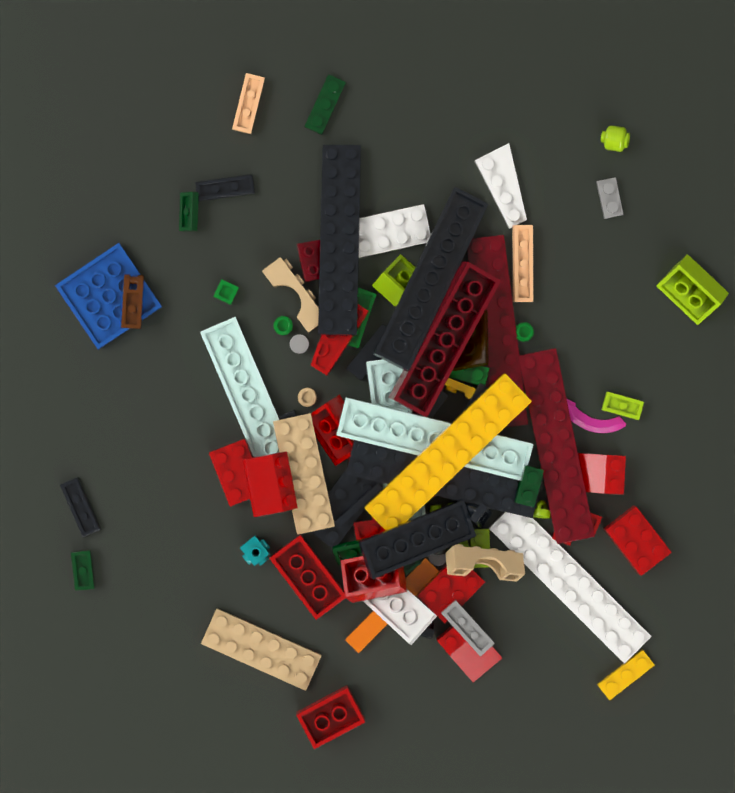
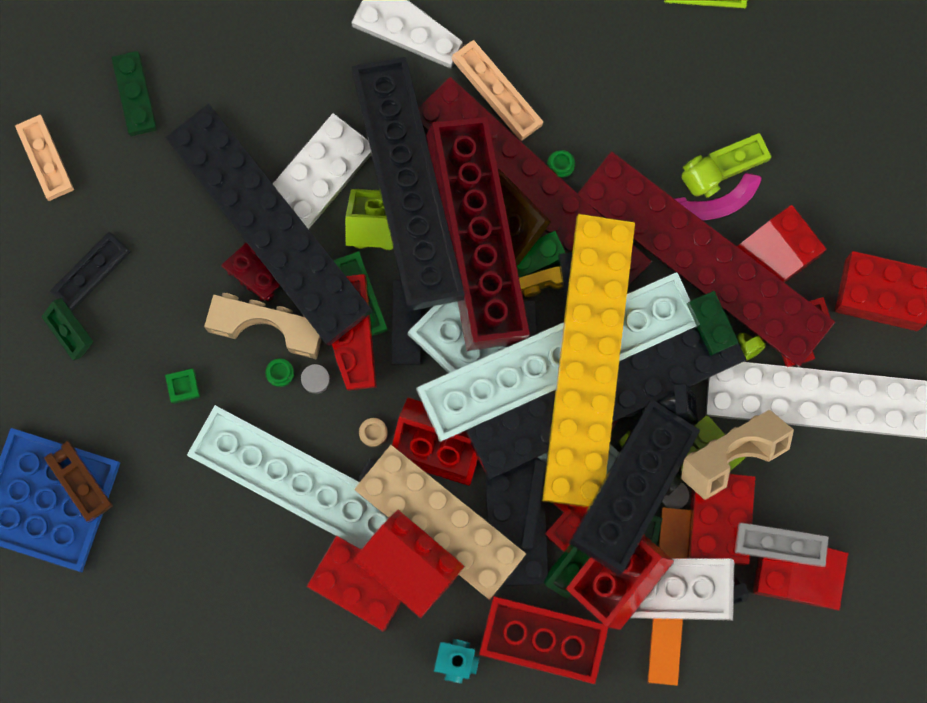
camera: 40 degrees left, 10 degrees down
(593, 400) = (702, 176): none -> lime head

